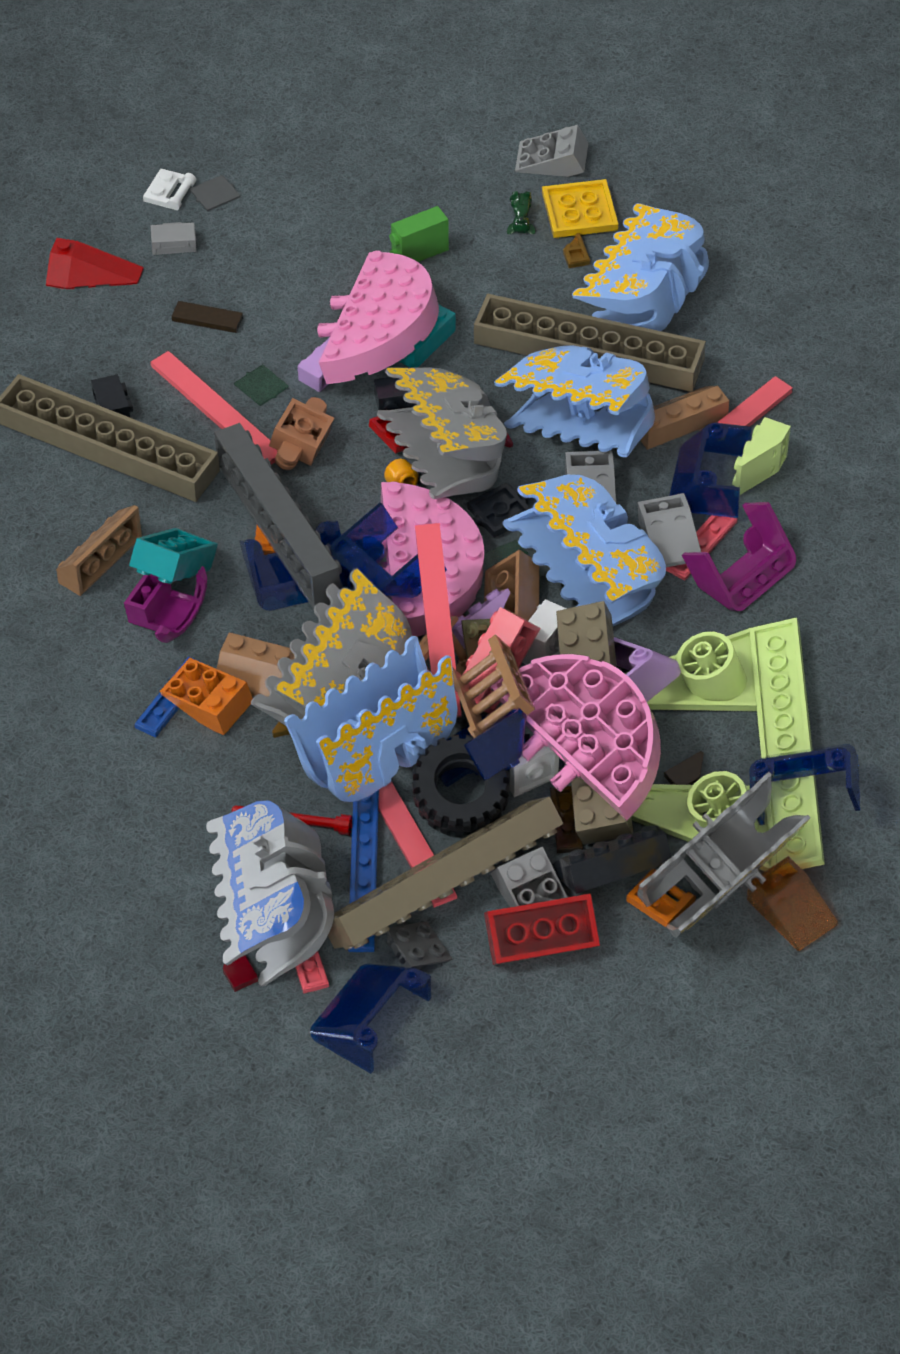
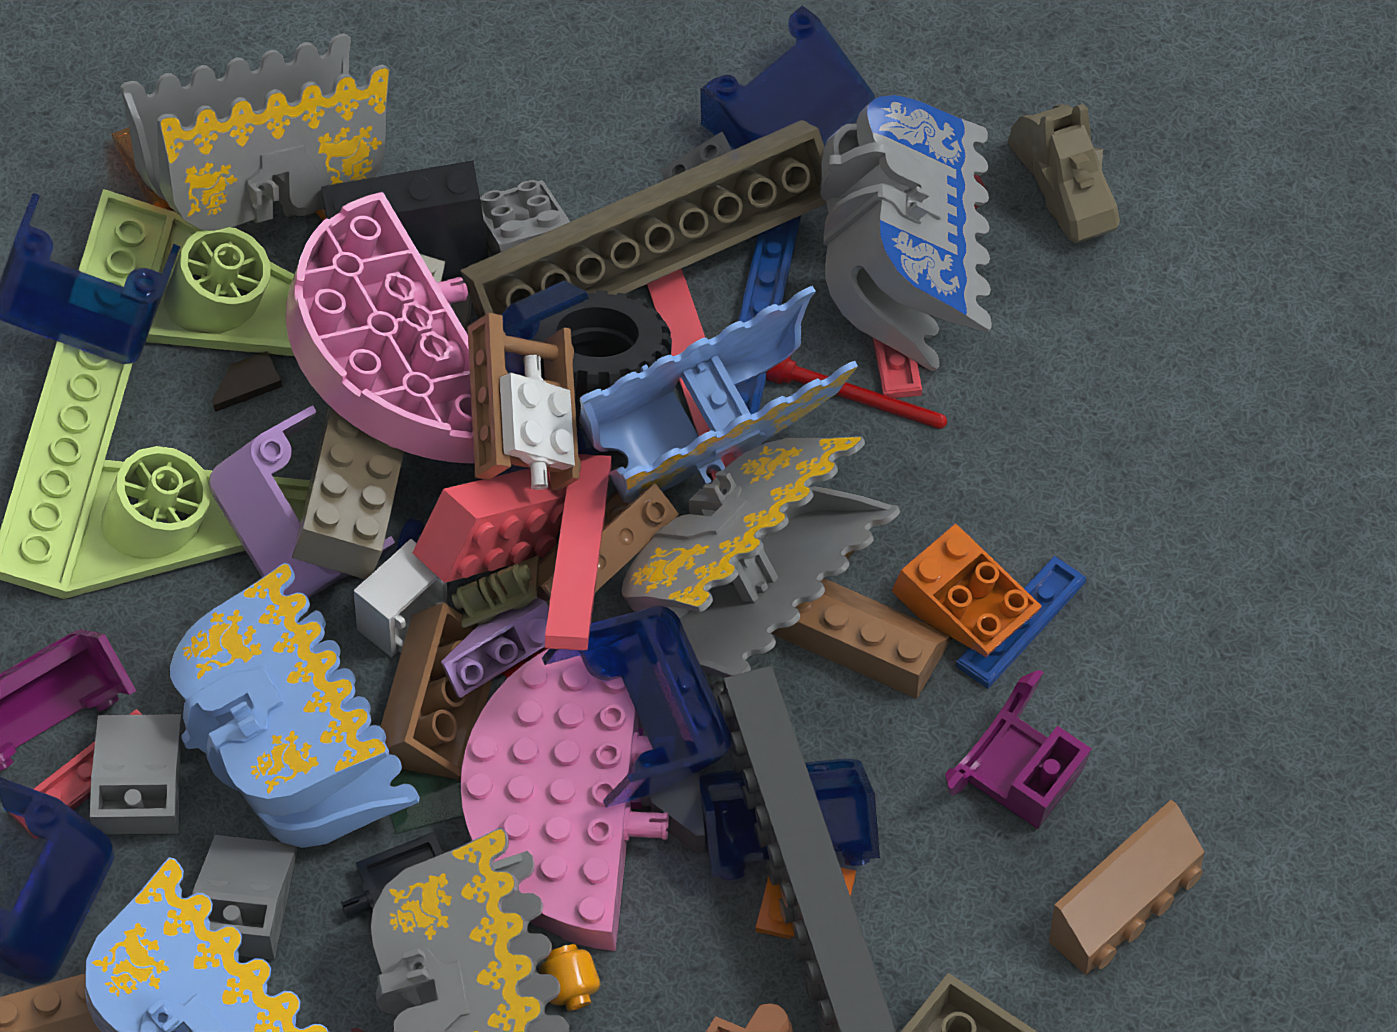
camera: 170 degrees left, 5 degrees up
(148, 954) = (1067, 170): none -> dark tan animal
(172, 555) = (998, 810): teal brick -> none
(478, 670) = (536, 422): none -> white plate
(541, 929) = (533, 150): red brick -> none

